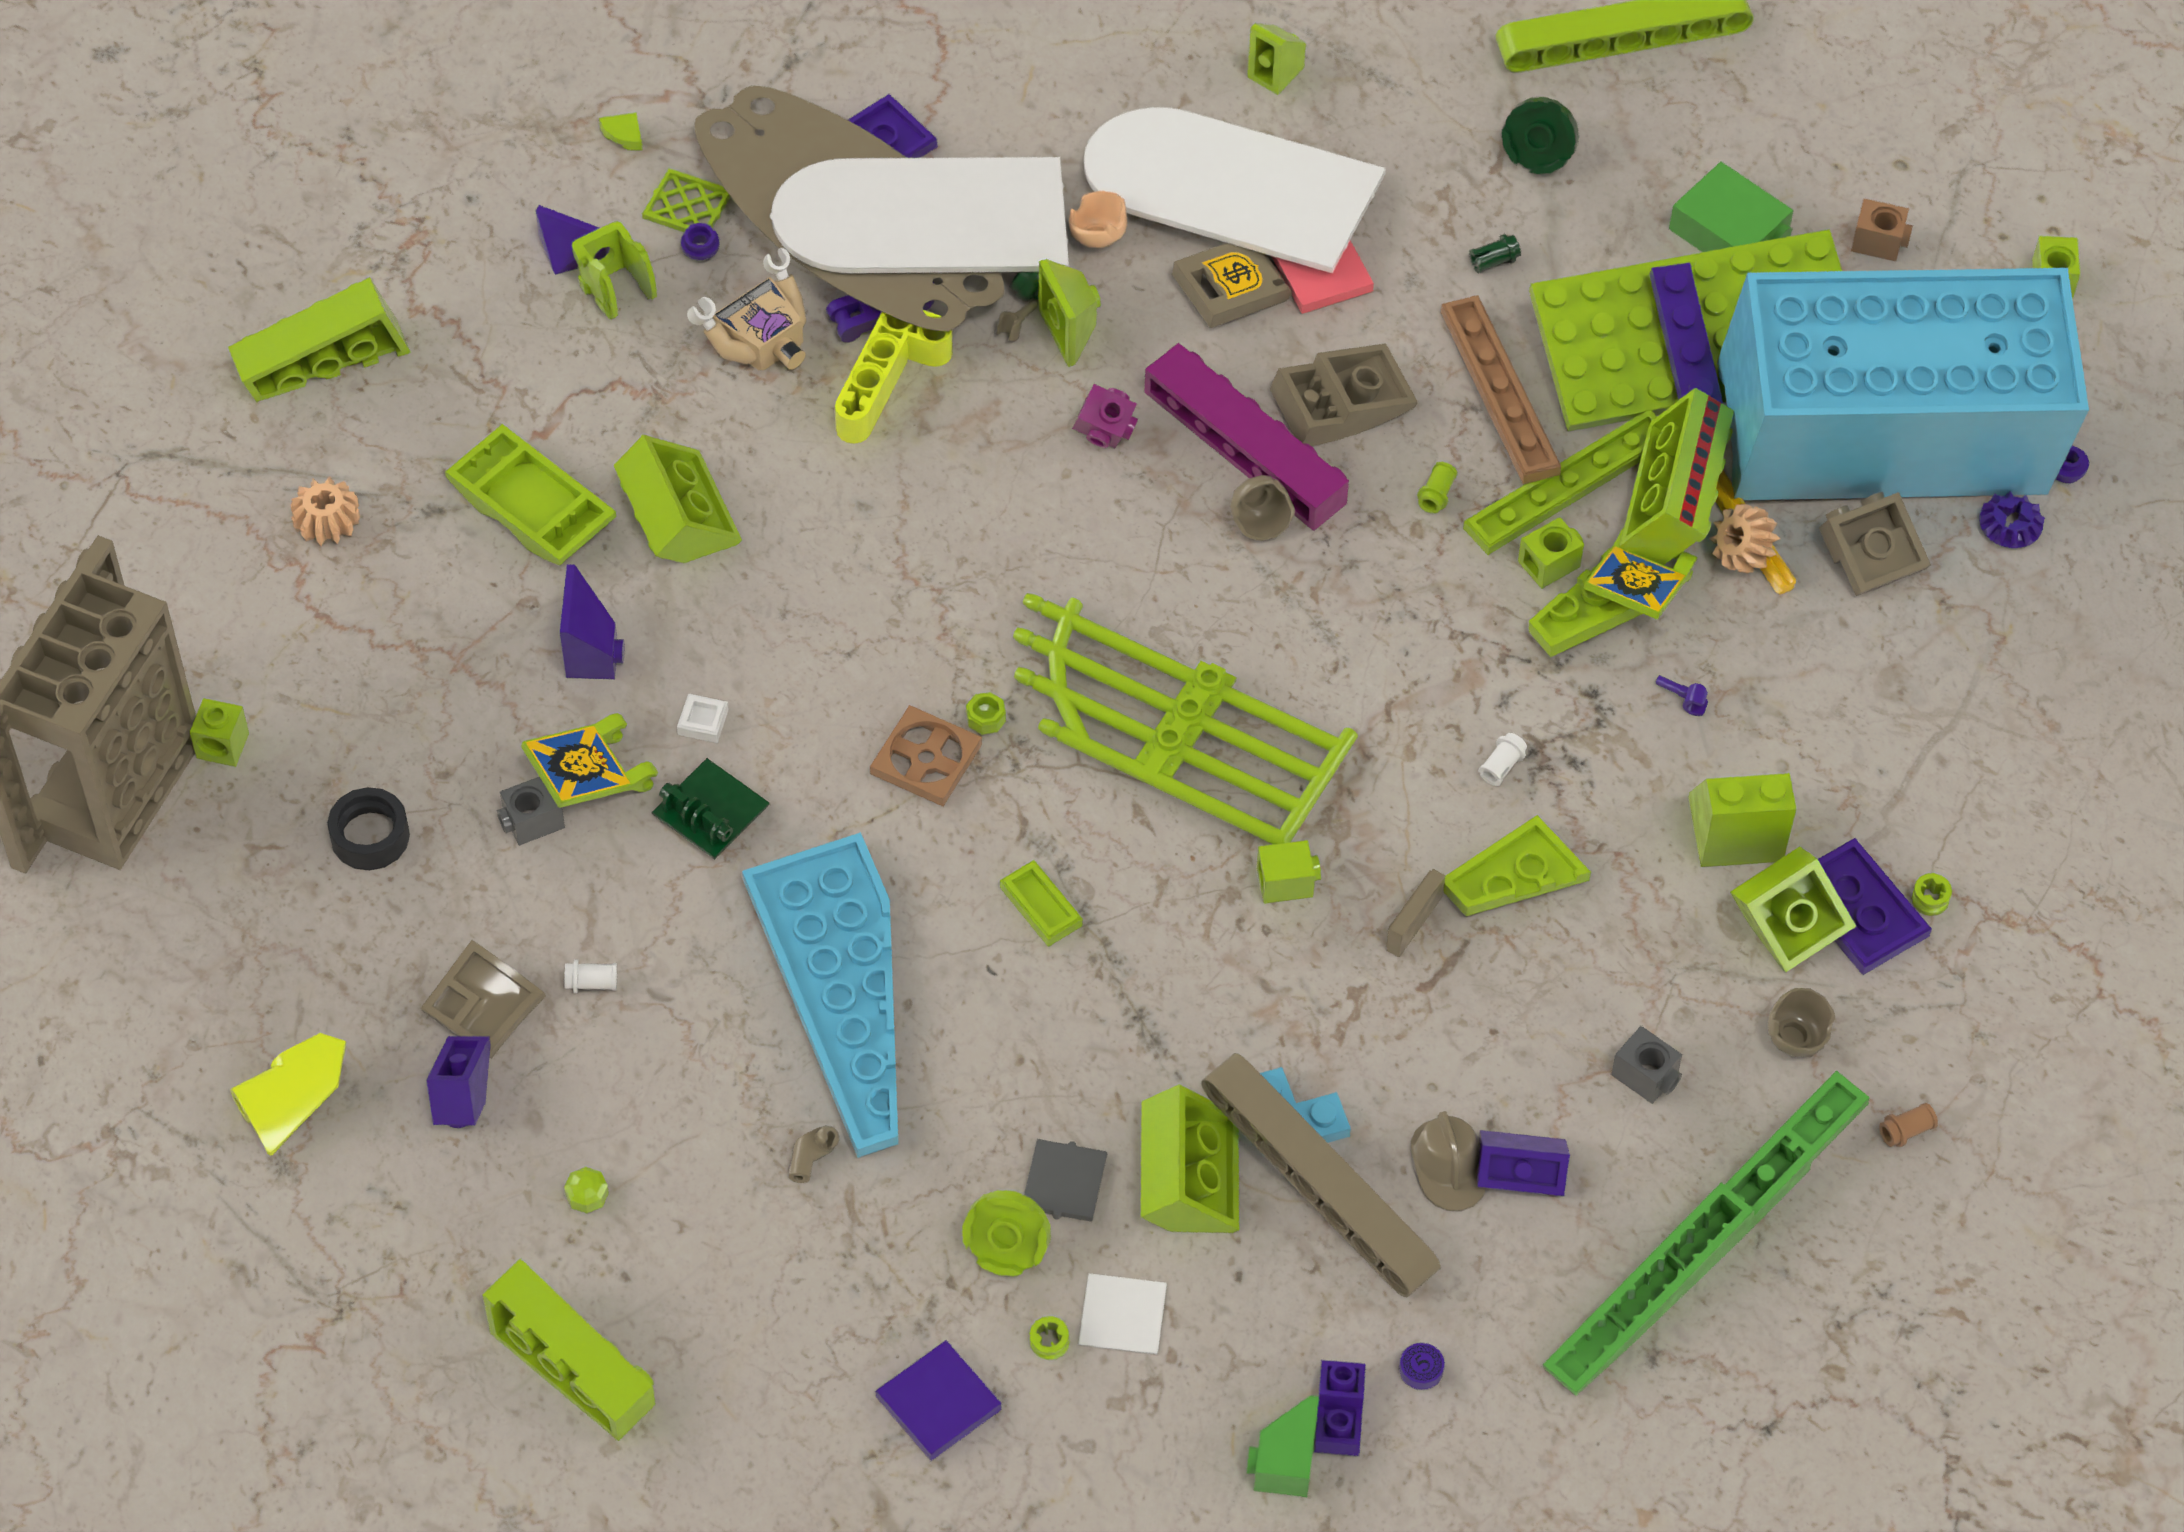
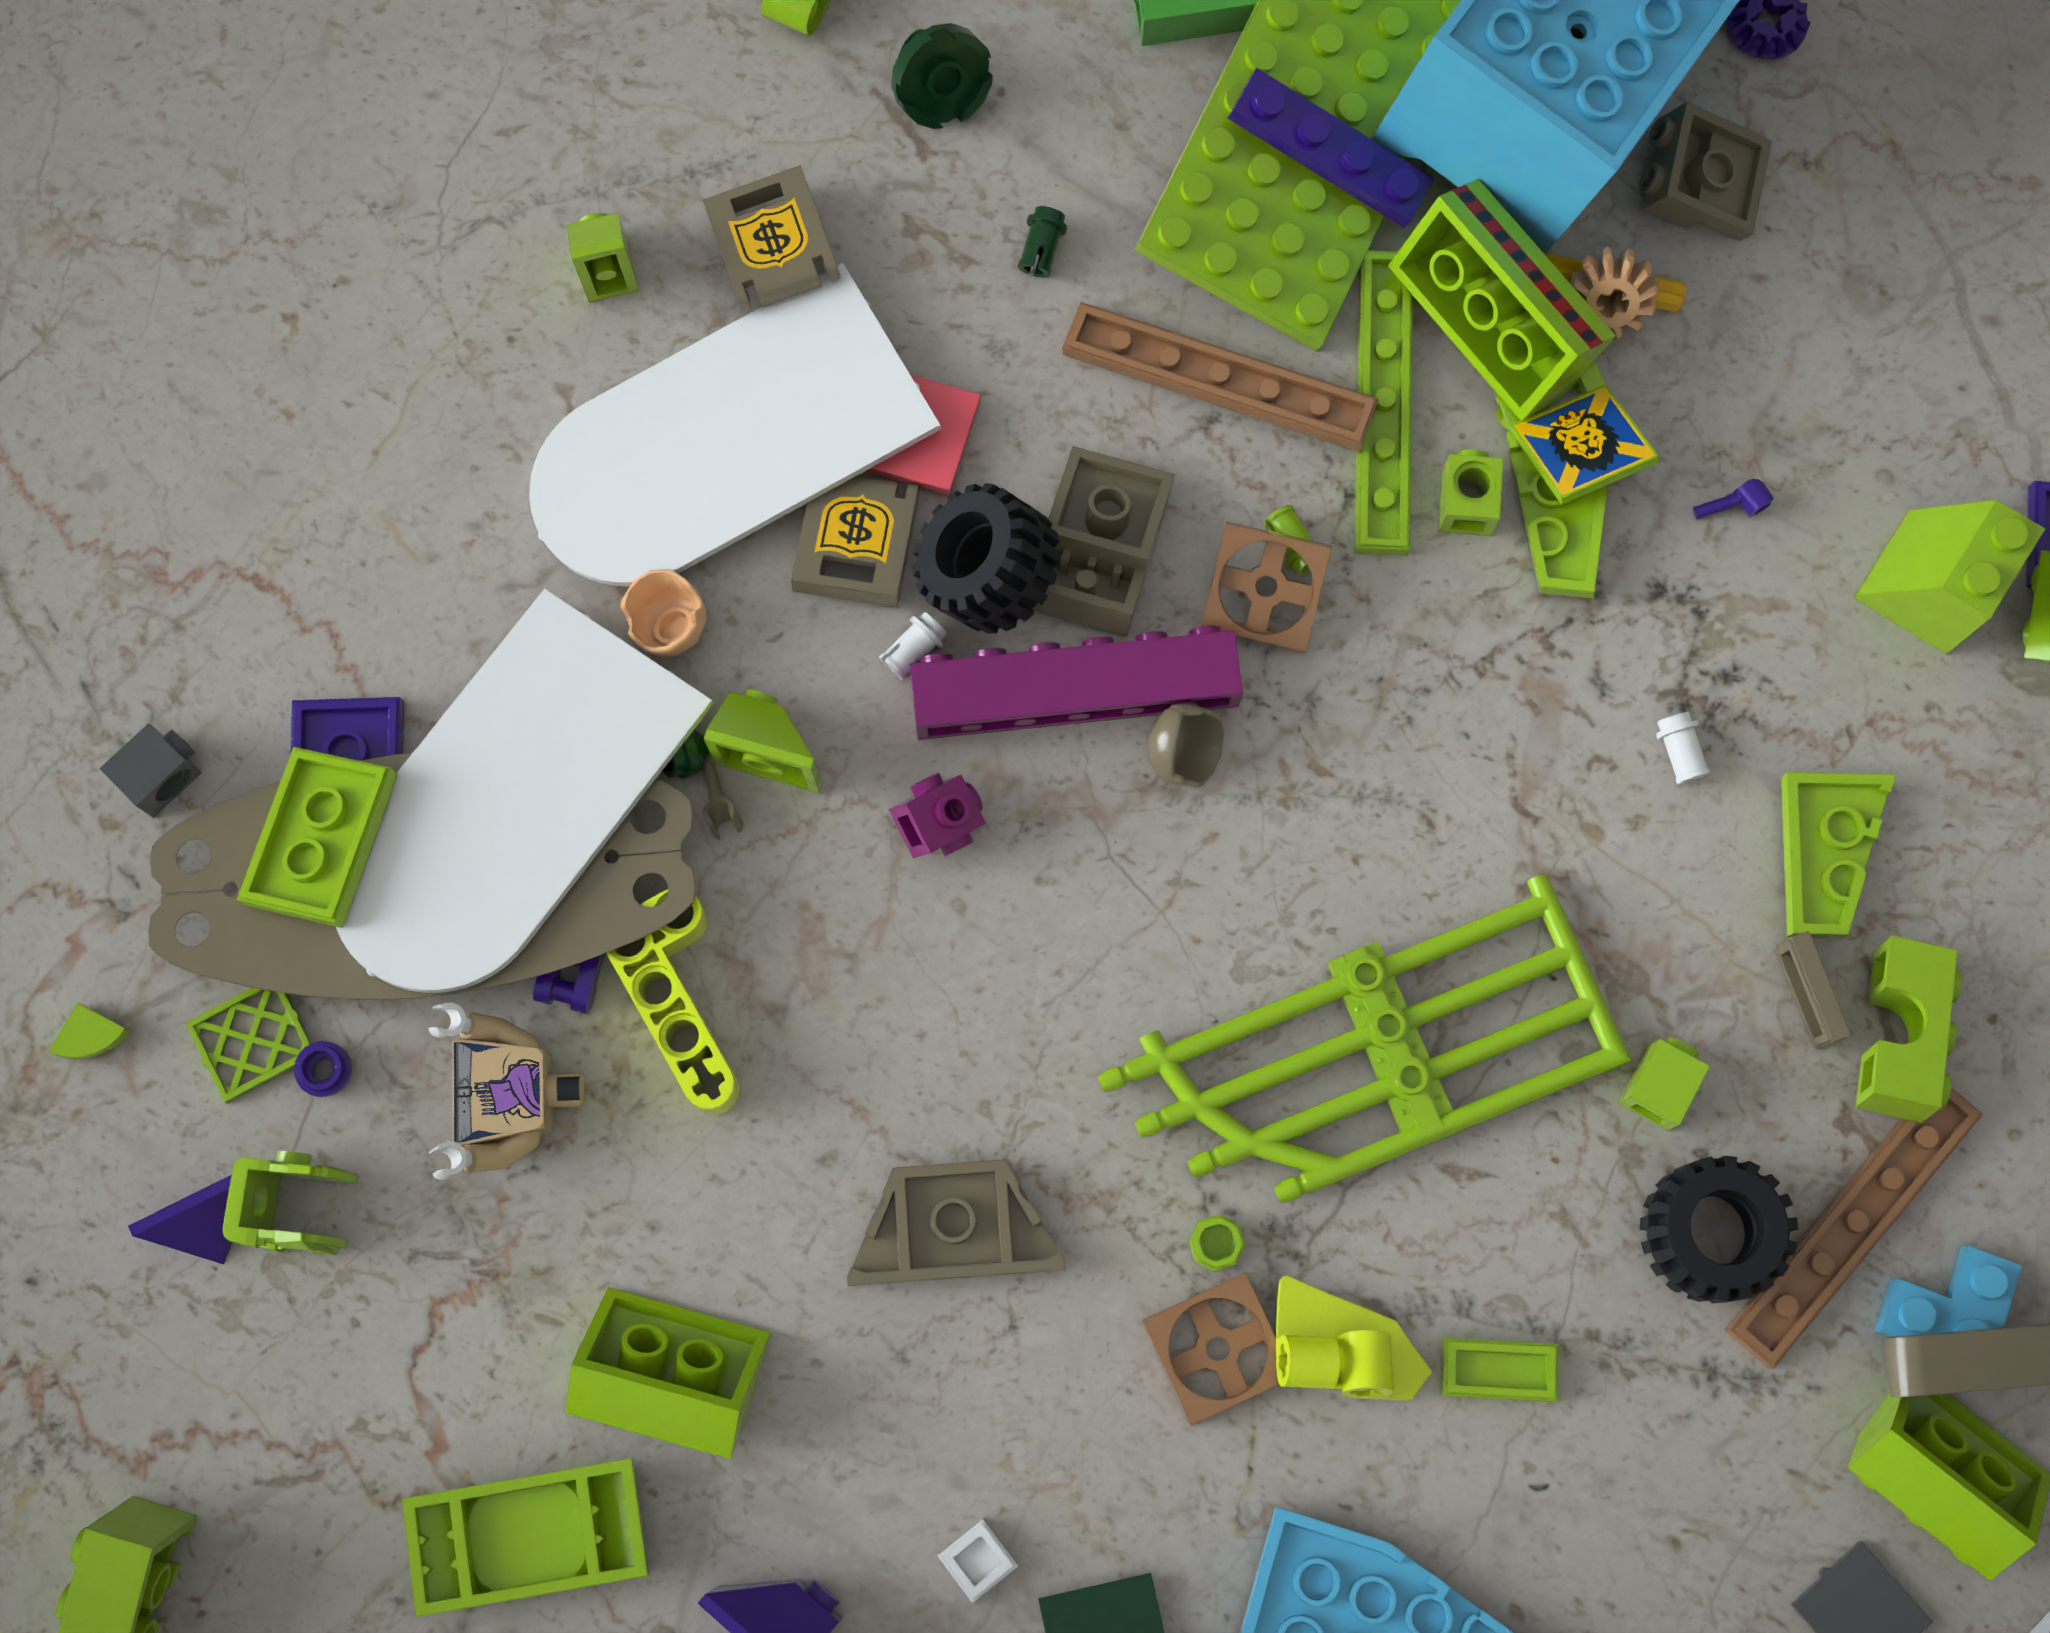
camera: 50 degrees left, 20 degrees up
(792, 57) = (152, 769): none -> dark grey brick
(823, 145) = (317, 837): none -> lime tile
(879, 581) = (953, 1226): none -> dark tan wing
(982, 811) = (1342, 1346): none -> neon yellow panel
(1205, 347) = (913, 645): none -> white pin
(1227, 919) = (1764, 1223): none -> black tyre
(1273, 334) = (986, 558): none -> black tyre
(1297, 1029) = (1850, 1229): none -> medium nougat tile
(1365, 123) = (774, 243): none -> dark tan container
(1379, 463) = (1290, 591): none -> medium nougat piece
(1408, 984) = (1919, 986): none -> lime arch

